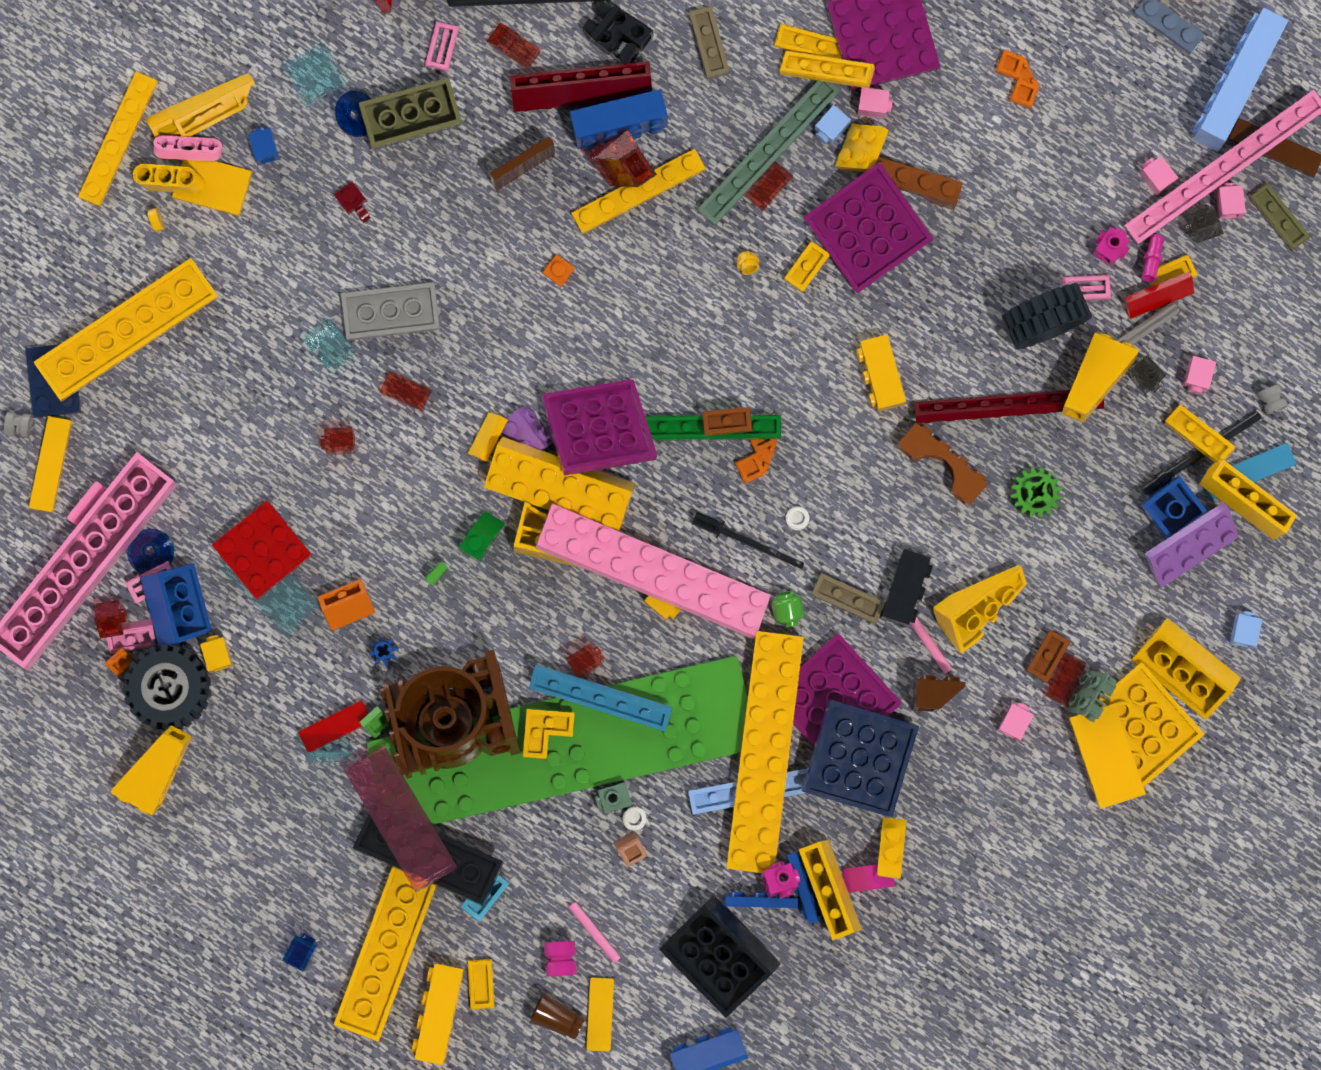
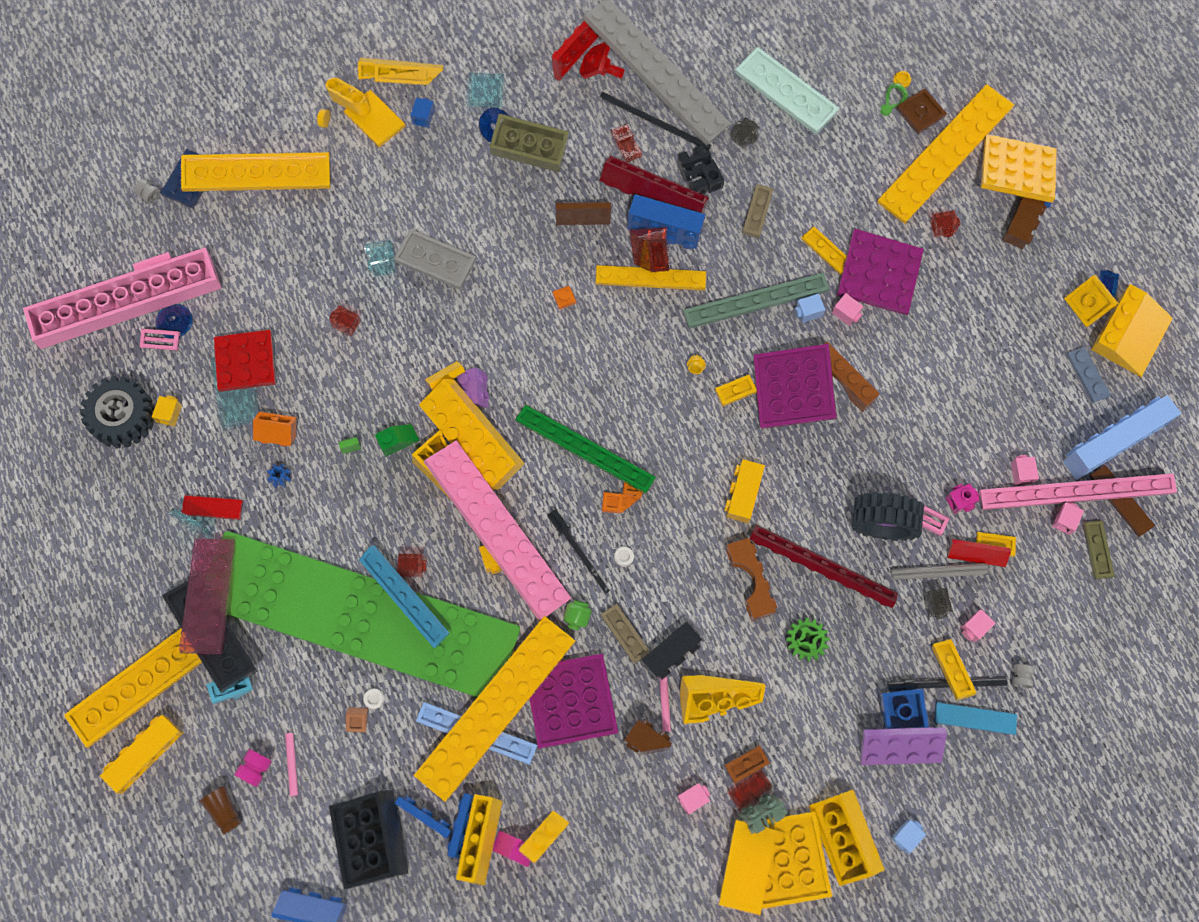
camera: 30 degrees right, 10 degrees down
(50, 464) = (149, 228): yellow tile -> none
(110, 619) = (113, 345): clear red brick -> none
(118, 139) = (334, 59): yellow plate -> none
(119, 662) = (98, 375): orange slope -> none
(136, 636) = (121, 366): bright pink slope -> none
(153, 773) = (67, 461): yellow slope -> none
(176, 604) = (163, 361): blue slope -> none
(204, 154) = (373, 86): bright pink beam -> none
(301, 952) = (78, 648): clear blue brick -> none
(352, 200) = (457, 178): dark red plate -> none
(375, 722) = (240, 520): bright green tile -> none
(405, 391) = (411, 316): clear red plate -> none
(445, 67) = (573, 131): bright pink tile -> none
(457, 741) = (296, 565): reddish brown brick -> none
(481, 984) = (186, 751): yellow tile -> none
(541, 725) = (349, 590): yellow plate -> none
(599, 427) = (522, 410): magenta plate -> none
(600, 1014) = (255, 828): yellow piece -> none
(613, 798) = (368, 674): sand green brick -> none
(727, 421) = (614, 458): dark orange plate -> none
(769, 186) = (742, 324): clear red tile -> none
(773, 884) = (448, 800): dark pink brick -> none
(827, 69) = (828, 270): yellow tile -> none
(860, 758) = (561, 754): dark blue plate -> none
(861, 147) = (821, 332): yellow plate -> none
(1017, 68) = (962, 344): orange tile -> none
(1099, 372) = (902, 580): yellow slope -> none
(1153, 258) = (988, 524): dark pink pin -> none
(1204, 224) = (1040, 522): clear smoke brick -> none
(1248, 499) = (965, 737): yellow brick -> none

